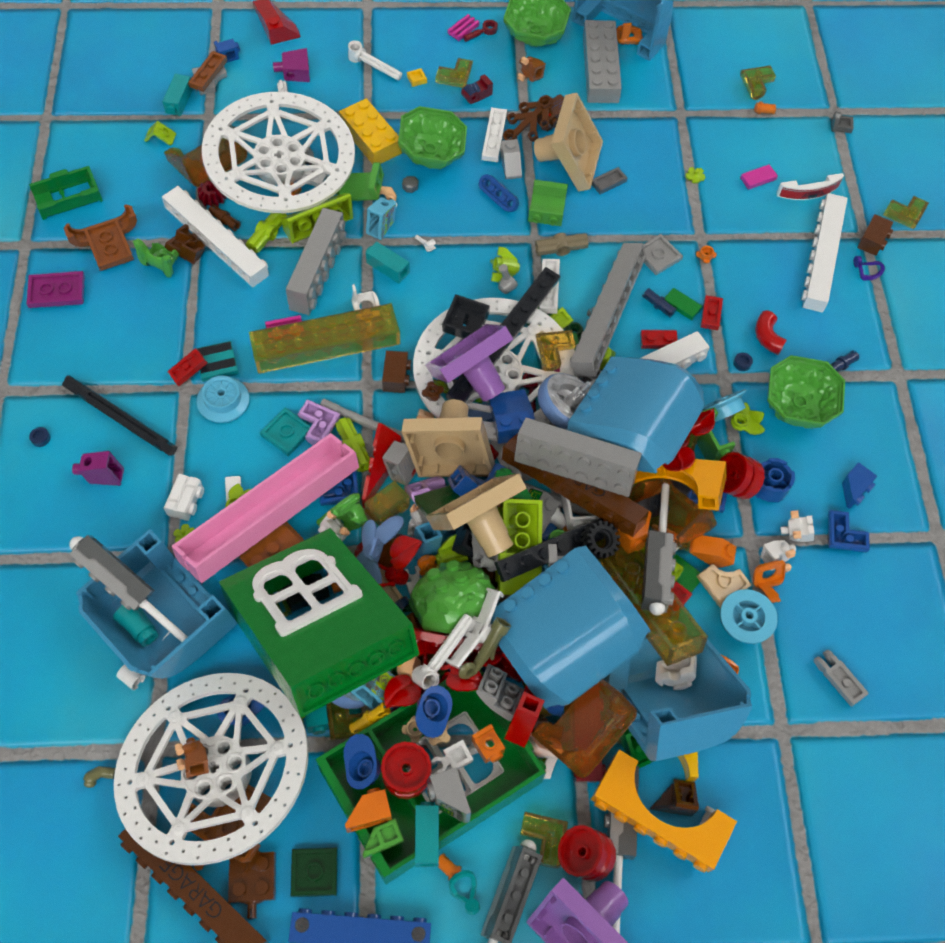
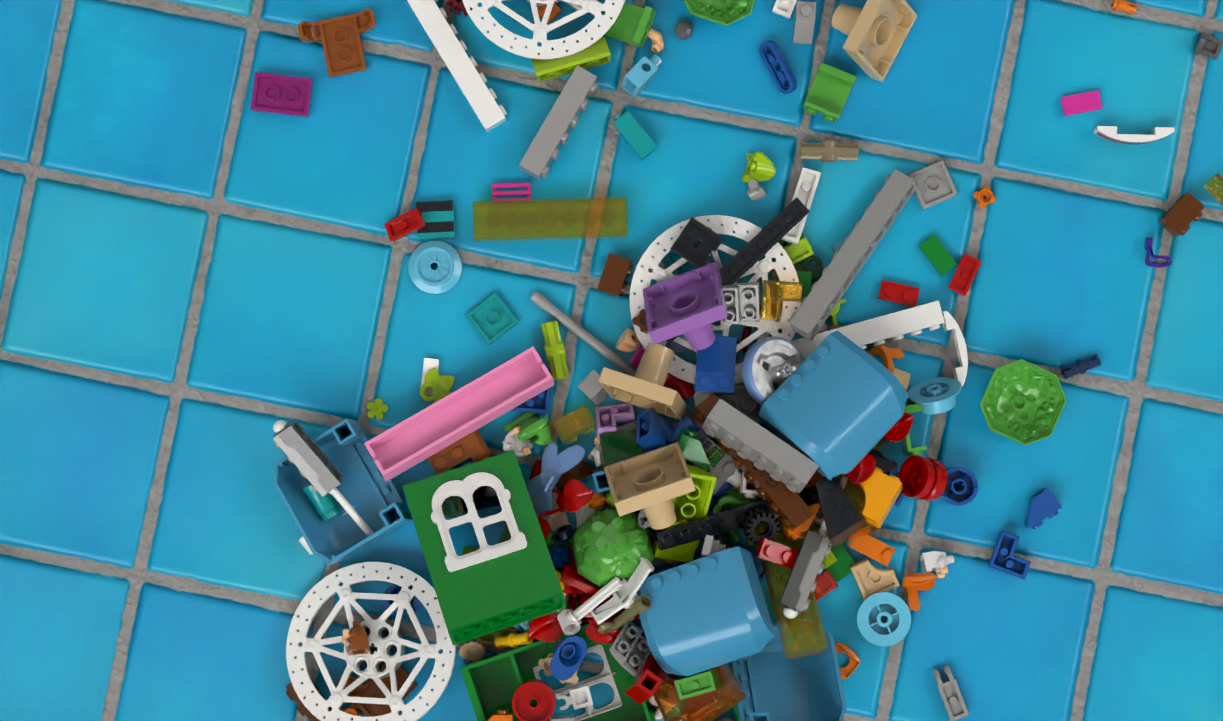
camera: 20 degrees right, 25 degrees up
(39, 437) = (250, 270): dark blue tile -> none
(97, 773) = (273, 623): olive arm -> none
(99, 468) = (304, 325): magenta torso -> none
(119, 415) = (330, 264): black piece -> none
(156, 256) = (390, 74): bright green hair -> none
(184, 497) = (382, 372): white brick -> none
(186, 245) = (424, 62): reddish brown slope -> none
(224, 217) = (470, 34): reddish brown pin -> none
(265, 231) = (509, 67): lime piece -> none
(322, 419) = (530, 316): lavender brick -> none
(323, 745) = (471, 651): none -> tan piece
(361, 762) = (497, 686): blue piece -> none
(366, 296) = (593, 174): white piece -> none
(382, 441) = (583, 366): red wedge -> none
(429, 245) = (686, 120): white hand -> none
(488, 753) = (609, 687): orange brick -> none
(519, 359) = (742, 302): none -> light grey slope
(580, 711) = (697, 683): none -> bright green panel
(609, 180) = (908, 71): flat silver tile -> none
(623, 560) = (776, 553): none -> plate
(659, 302) = (912, 250): dark blue pin -> none
(672, 503) = (838, 511): none -> black wedge
(678, 674) = (799, 666): white cylinder -> none
(695, 175) = (1009, 84): lime plant -> none
(728, 364) = (950, 324): none -> white slope
(743, 361) = (978, 340): dark blue tile -> none
(750, 421) = (961, 411): lime plate -> none
(766, 334) = (1012, 314): red cylinder -> none
(799, 528) = (965, 540): white piece -> none
(825, 253) = (1116, 224): white brick -> none

